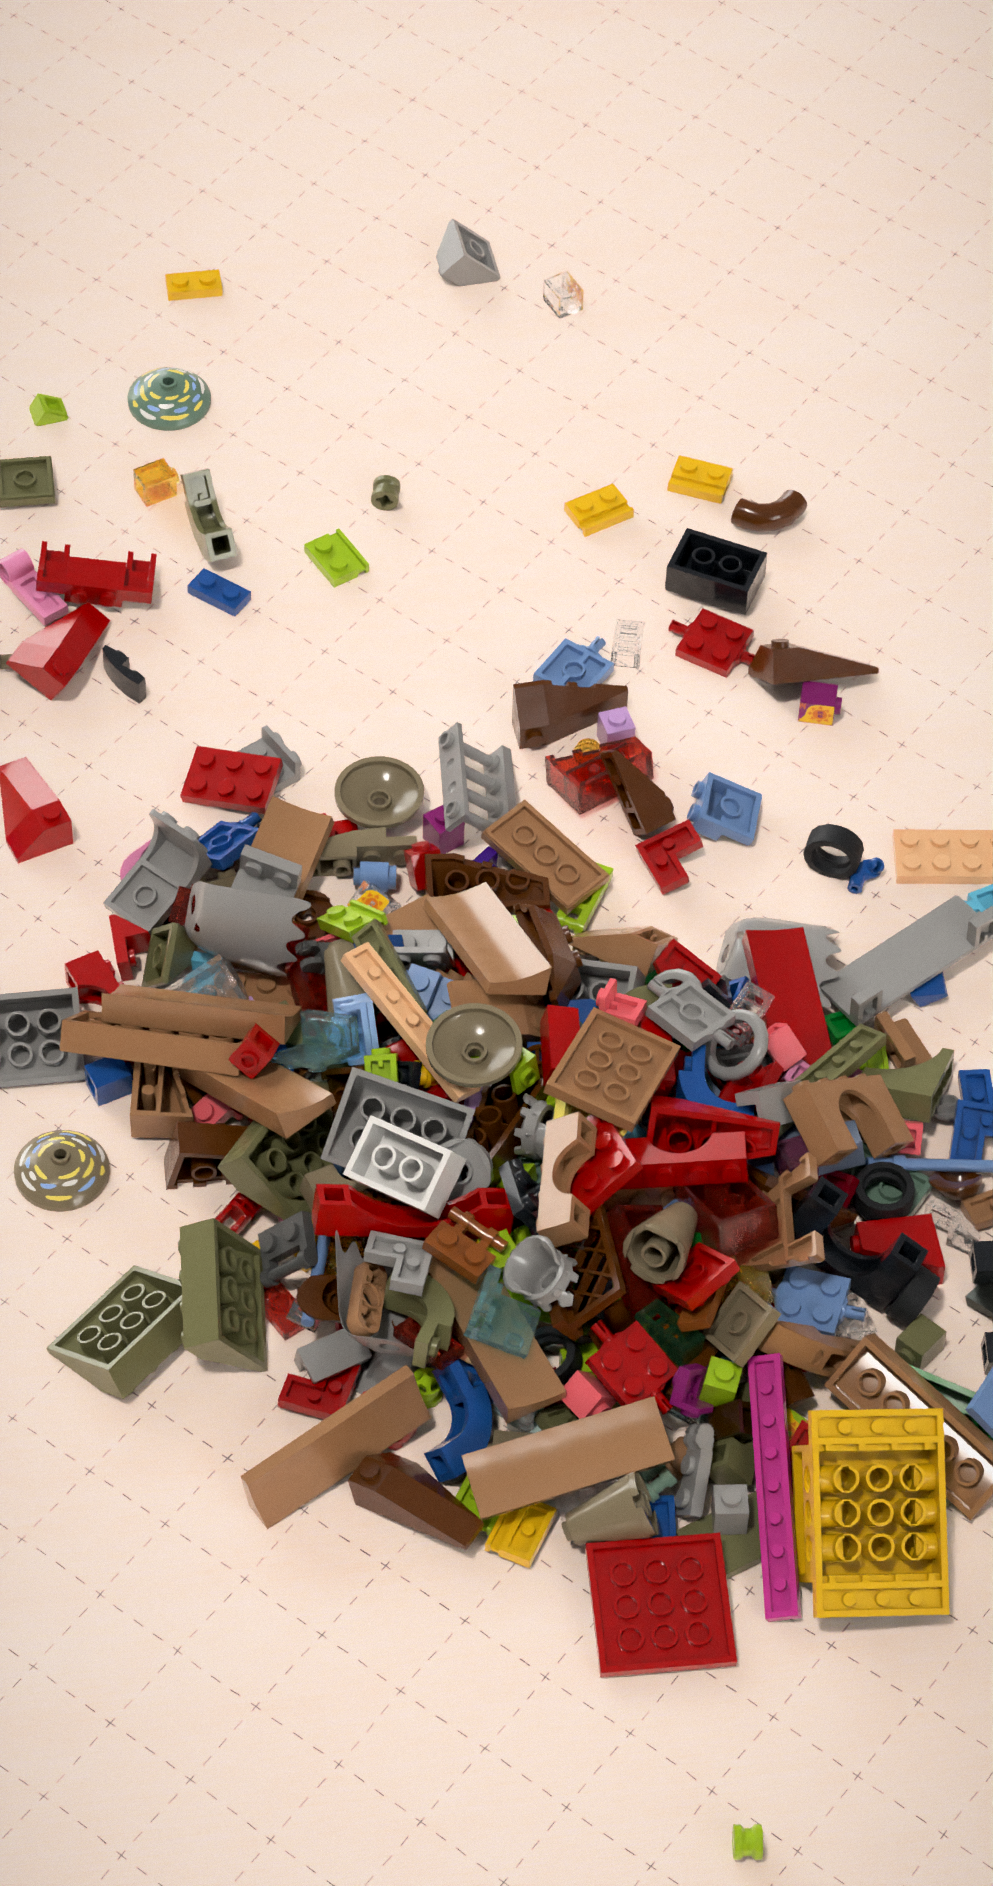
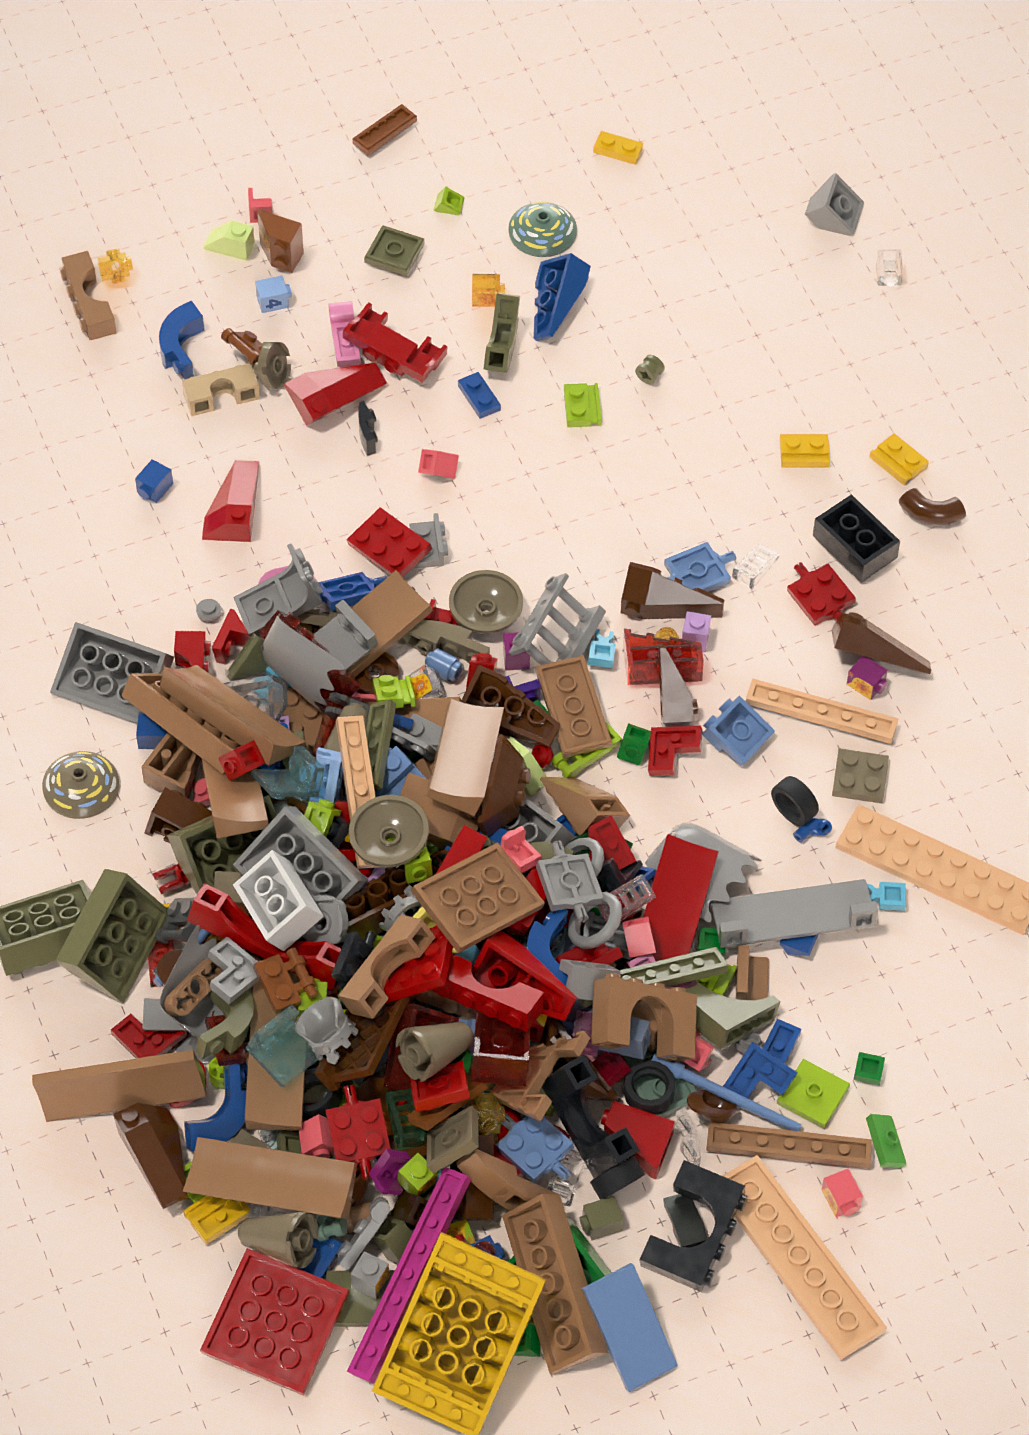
camera: 30 degrees right, 5 degrees up
(78, 931) = (208, 610): none -> light grey plate
(226, 677) = (438, 463): none -> coral panel
(233, 451) = (558, 287): none -> blue wedge
(532, 791) = (602, 650): none -> medium azure plate
(629, 869) = (634, 744): none -> green bracket
(796, 755) = (822, 711): none -> light nougat plate
(874, 802) = (860, 775): none -> dark tan plate

